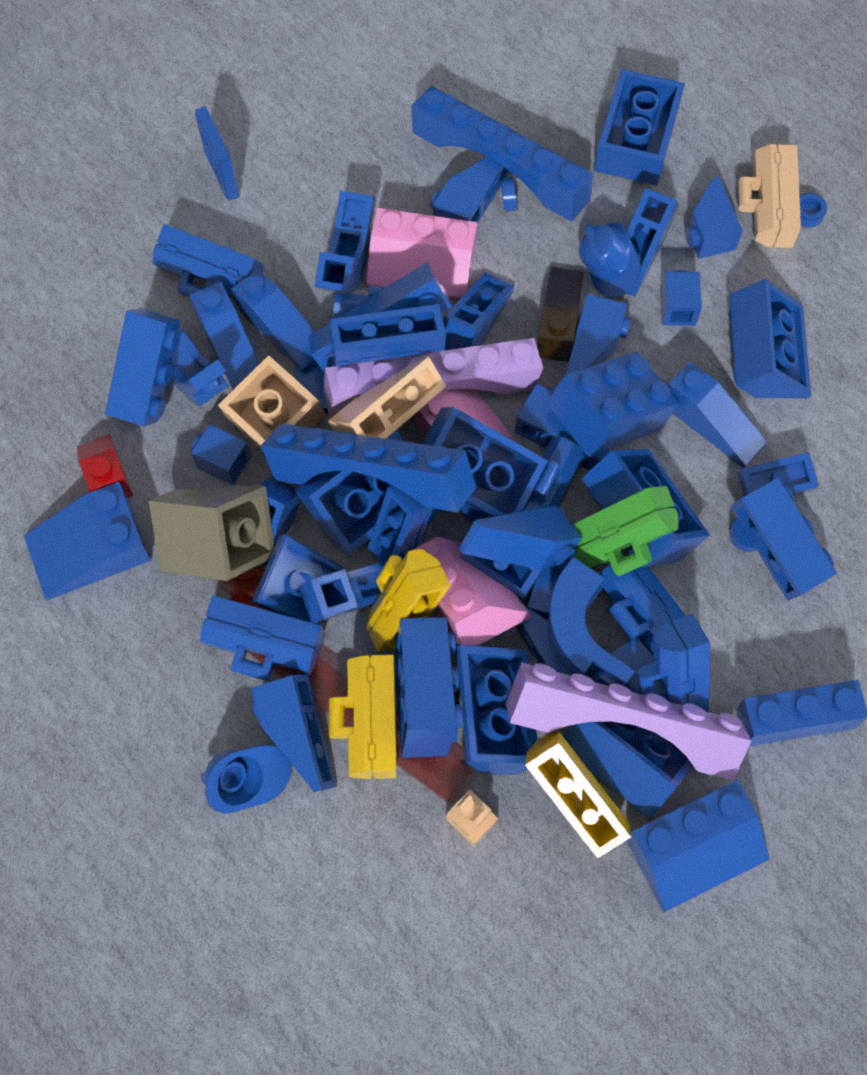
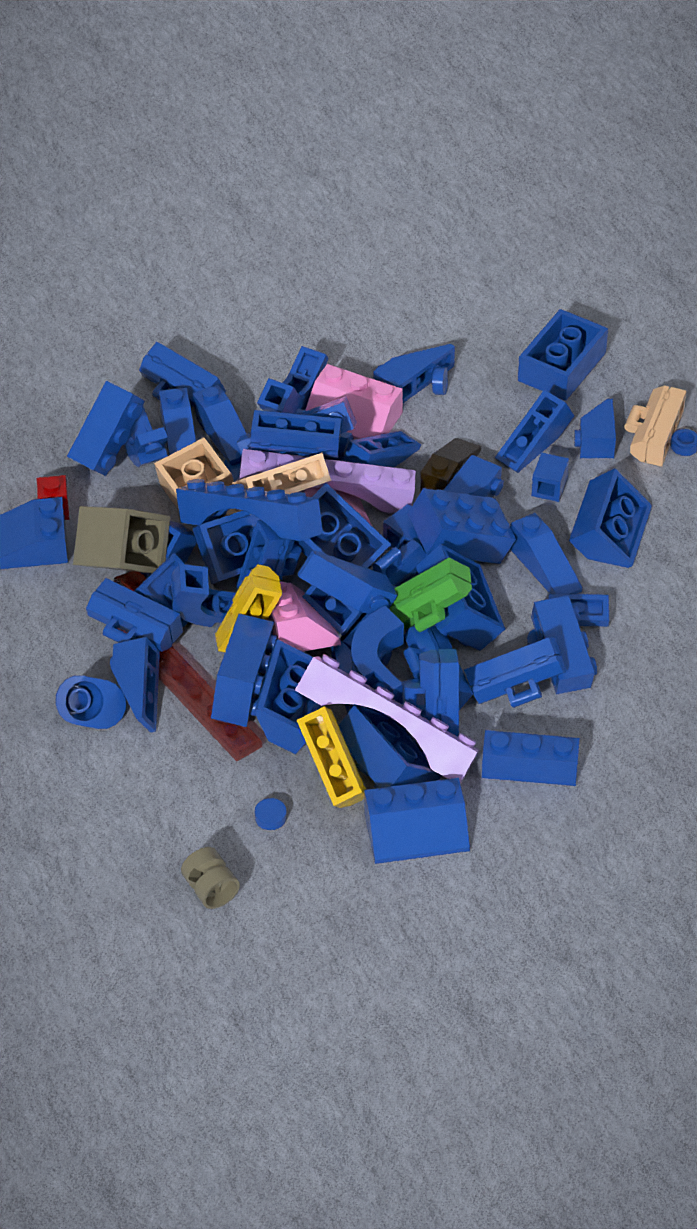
camera: 15 degrees right, 20 degrees down
(216, 153) = (215, 305): blue tile -> none
(220, 454) = (146, 497): blue brick -> none
(373, 735) = (195, 694): yellow piece -> none
(471, 817) = (249, 765): light nougat piece -> none
(481, 1009) = (210, 877): none -> dark tan wheel
(517, 877) = (270, 814): none -> blue tile
(552, 178) = (476, 374): blue arch -> none
(610, 259) = (502, 436): blue piece -> none
(746, 594) = (523, 665): none -> blue piece

